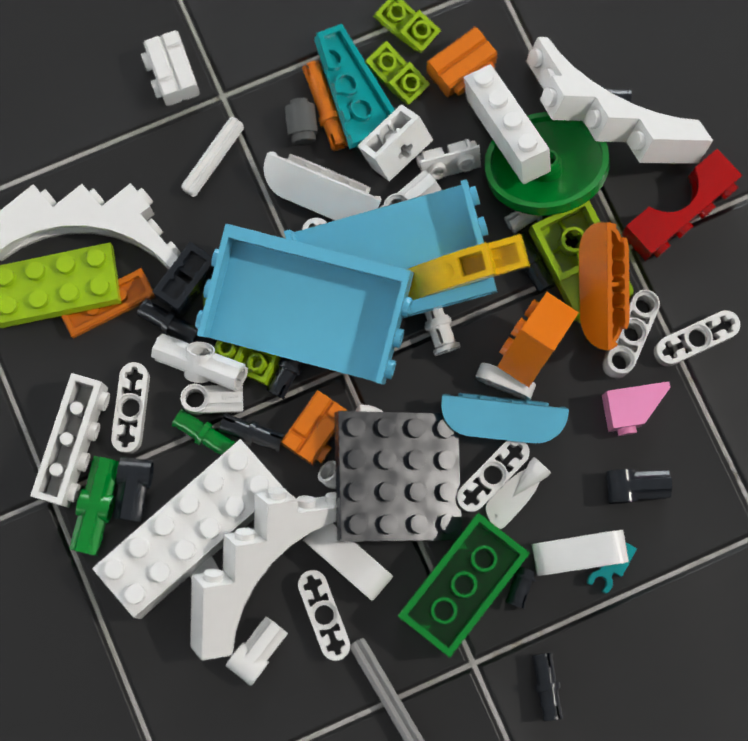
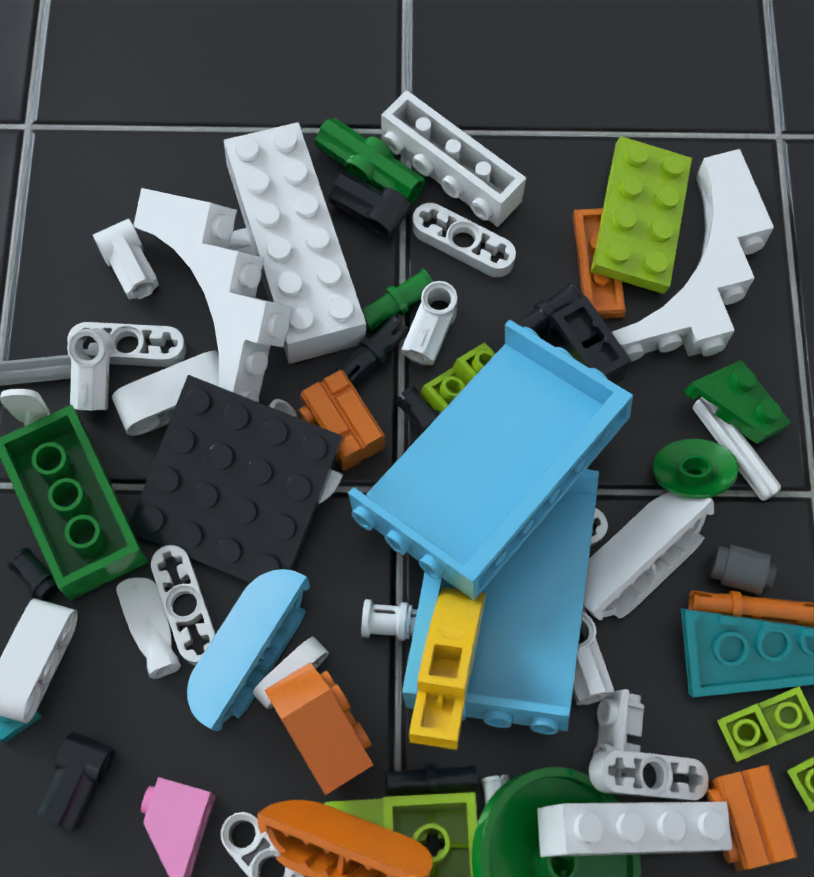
camera: 115 degrees right, 10 degrees down
(179, 163) = (741, 401): none -> green wing
(199, 362) = (479, 323): white piece -> none
(233, 179) = (695, 468): none -> green dish
(360, 624) = (90, 374): none -> white piece
(395, 142) = (667, 670): white brick -> none
(414, 646) = (24, 405): none -> white piece
(467, 139) = (634, 784): none -> white beam

